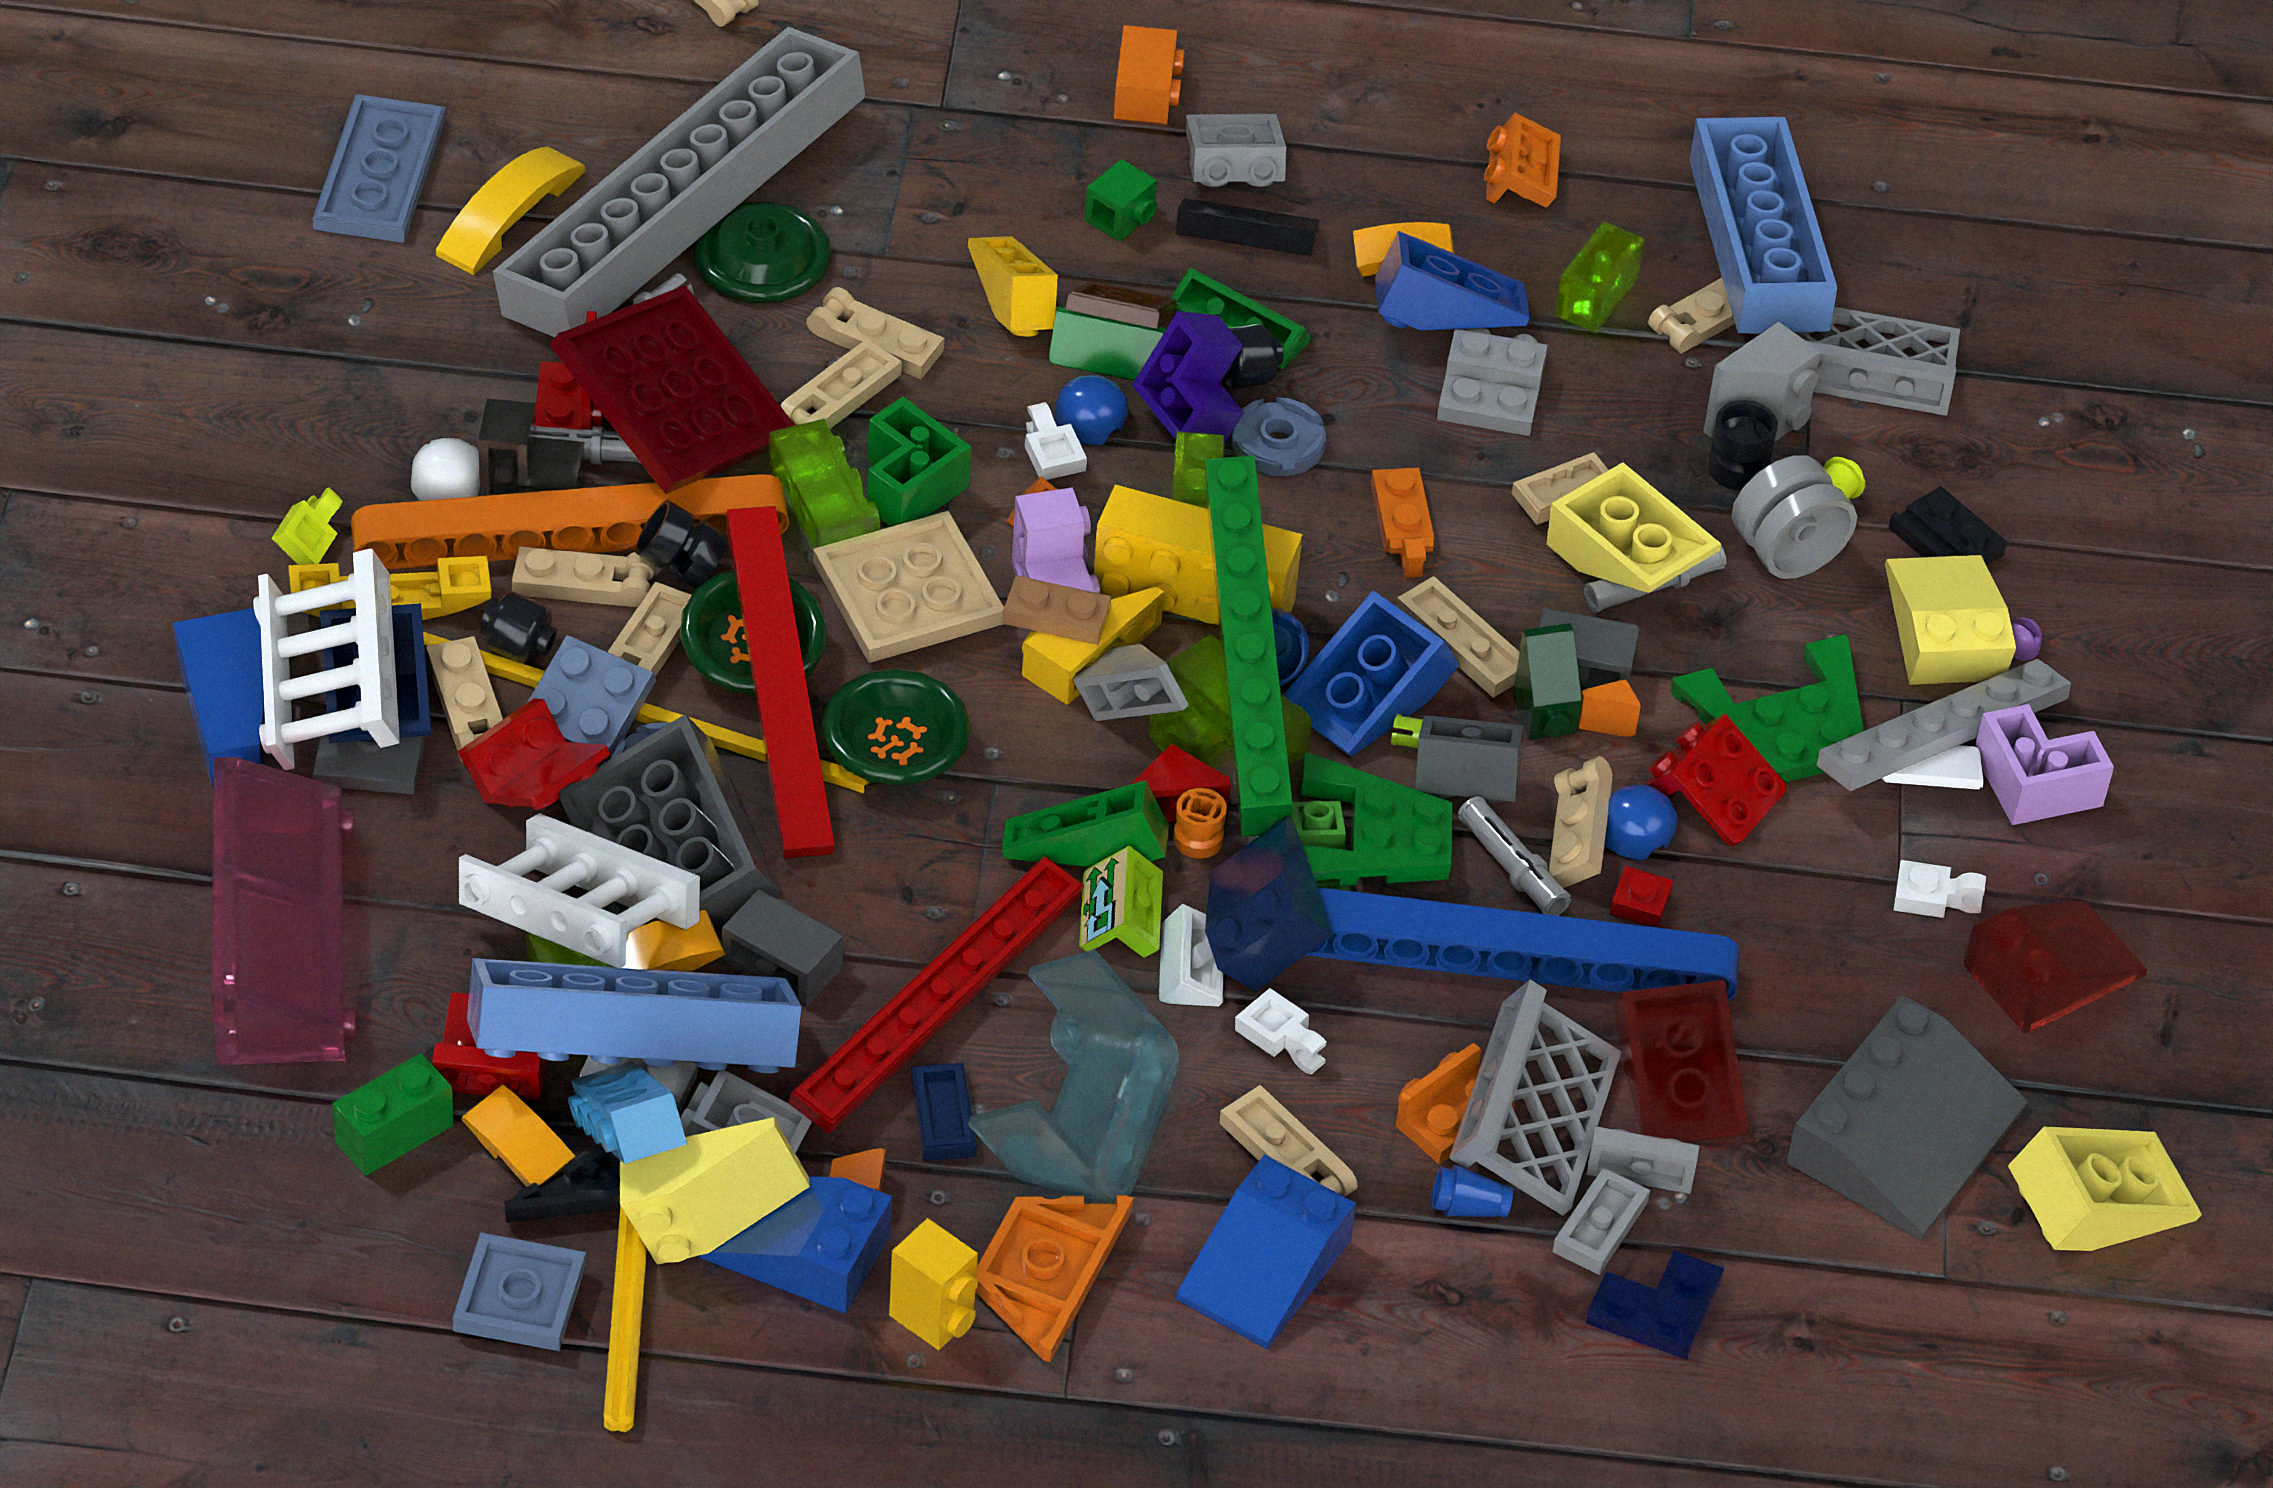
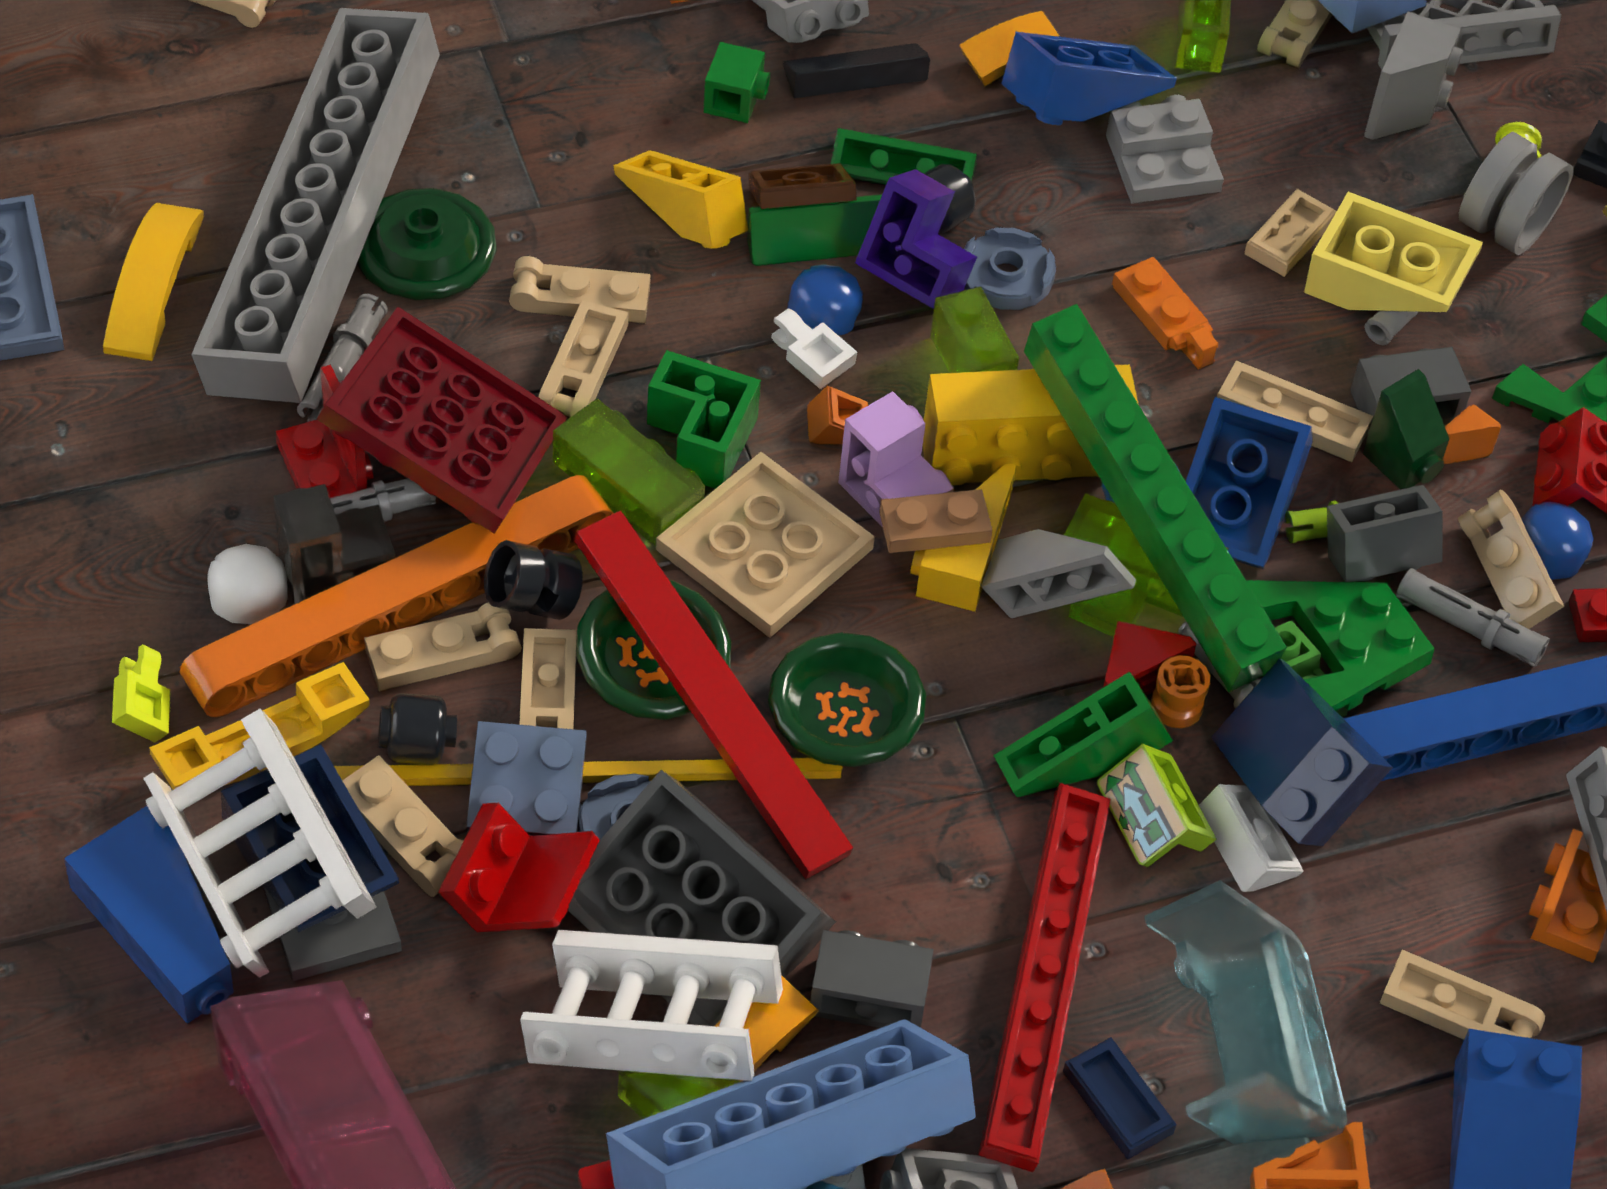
camera: 25 degrees left, 5 degrees up
(1279, 1025) = (1374, 878): white plate -> none
(1741, 443) = (1421, 138): black wheel -> none

